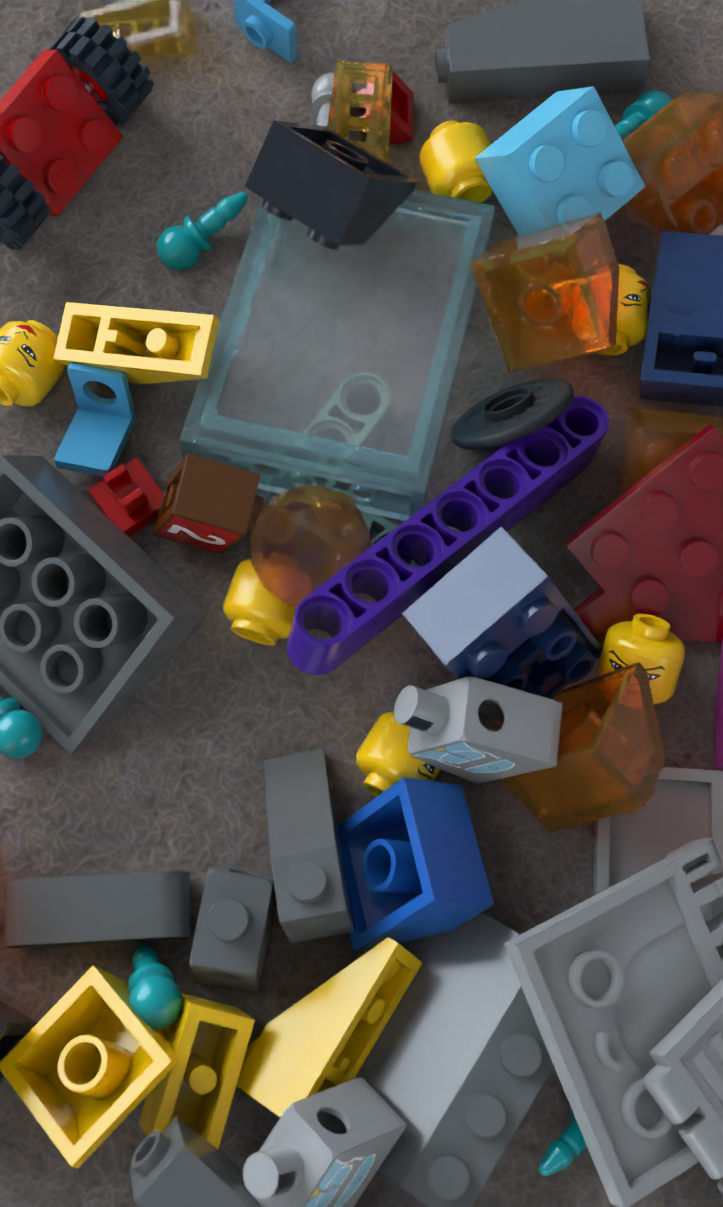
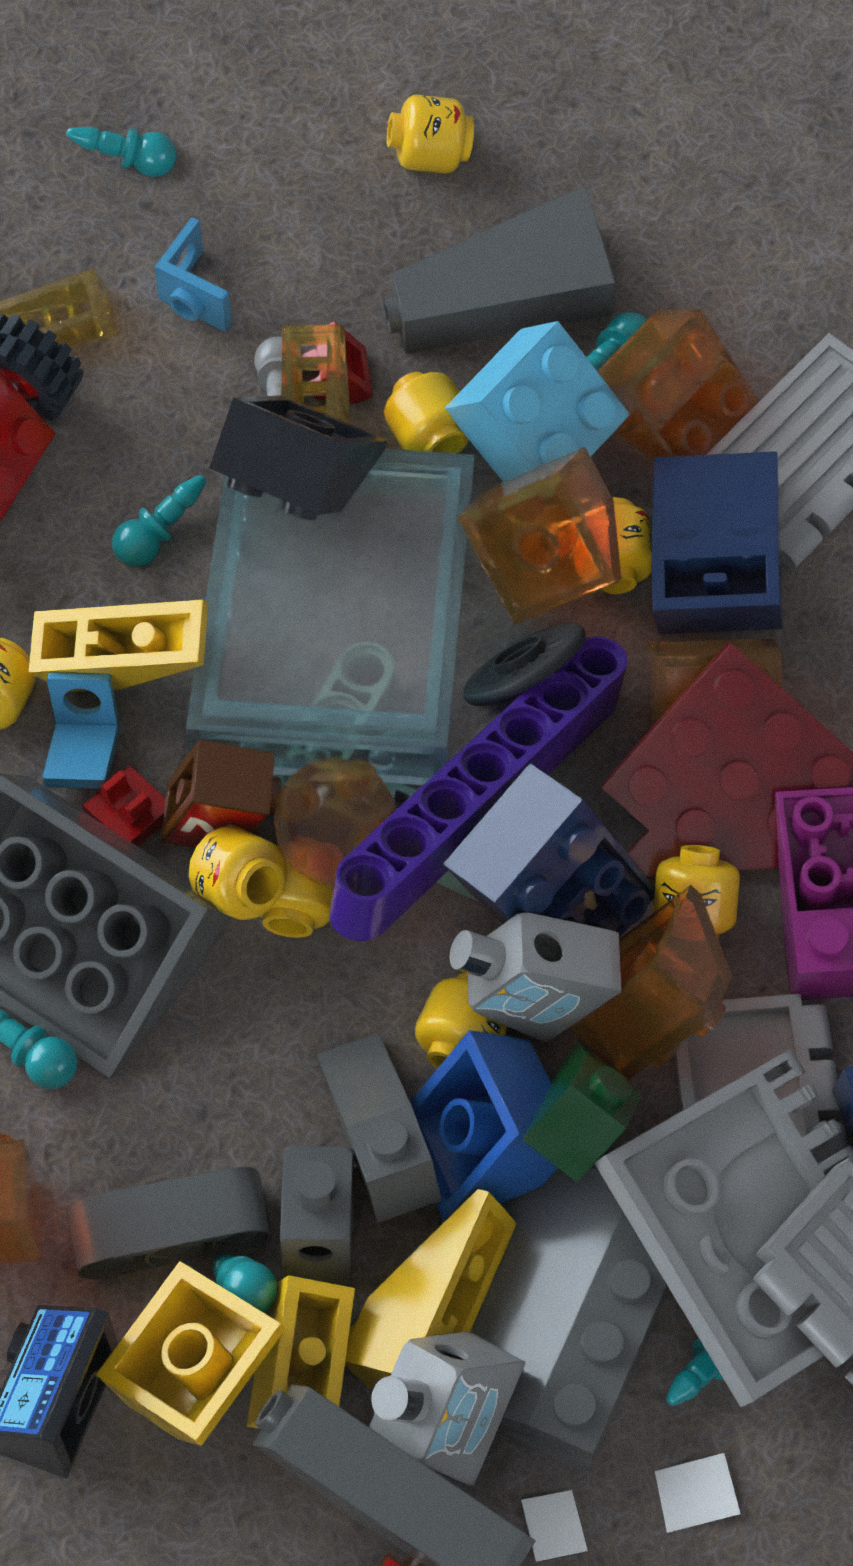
camera: 10 degrees left, 10 degrees down
(211, 582) = (237, 872): none -> yellow head
(502, 878) = (581, 1112): none -> dark green slope

